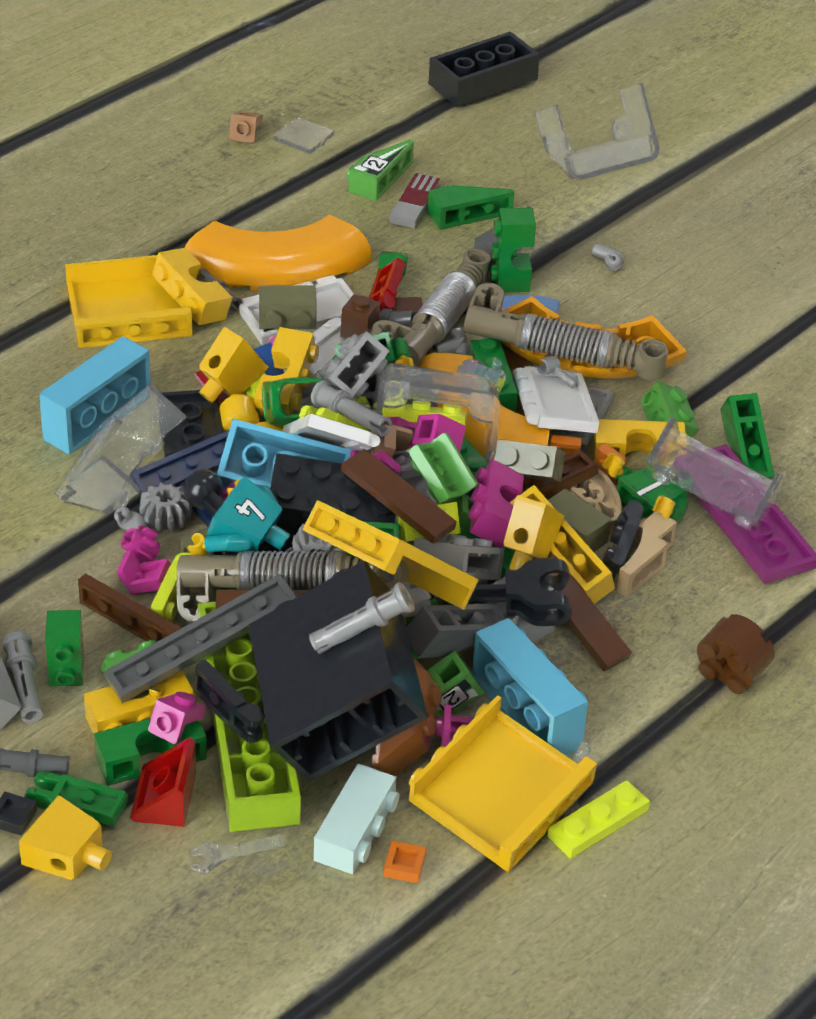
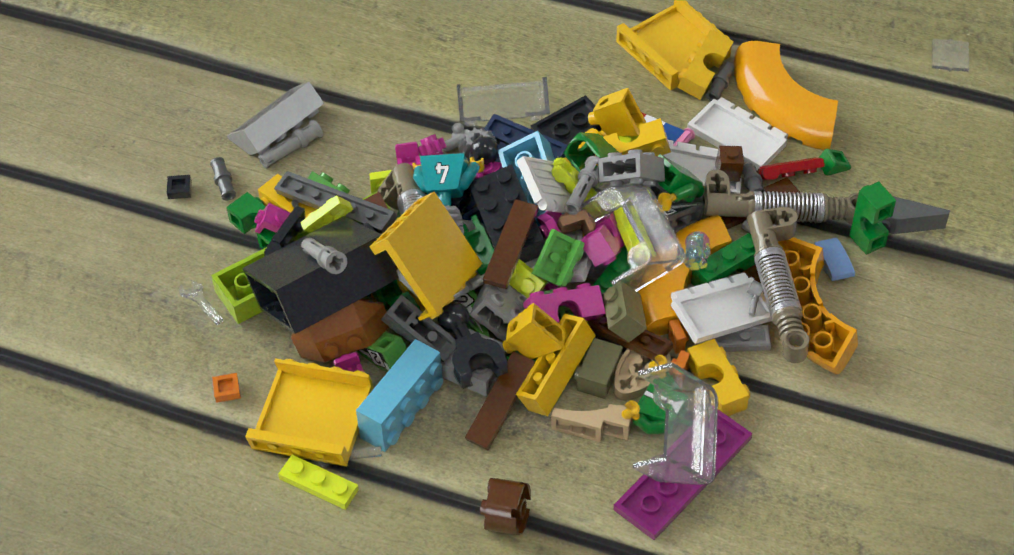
camera: 70 degrees right, 10 degrees up
(64, 647) = (310, 148): green brick -> none
(64, 842) = (167, 217): yellow torso -> none
(92, 393) = (565, 64): medium azure brick -> none
(94, 799) = (205, 212): green hinge -> none
(123, 610) = (368, 164): reddish brown tile -> none
(166, 787) = (231, 249): red slope -> none
(228, 657) = (329, 212): none -> neon yellow plate
(244, 126) = (928, 15): medium nougat bracket -> none
(287, 307) = (718, 121): olive brick -> none
(356, 819) = (248, 347): light aqua brick -> none
(378, 171) = (931, 110): bright green slope -> none
(413, 201) = (920, 146): light grey tile -> none
(466, 204) = (933, 176): green slope -> none
(611, 256) = (945, 289): light grey arm -> none
(623, 536) = (595, 400): black hinge -> none
(666, 402) = (774, 387): bright green bracket -> none
(747, 433) = (770, 446): green slope -> none

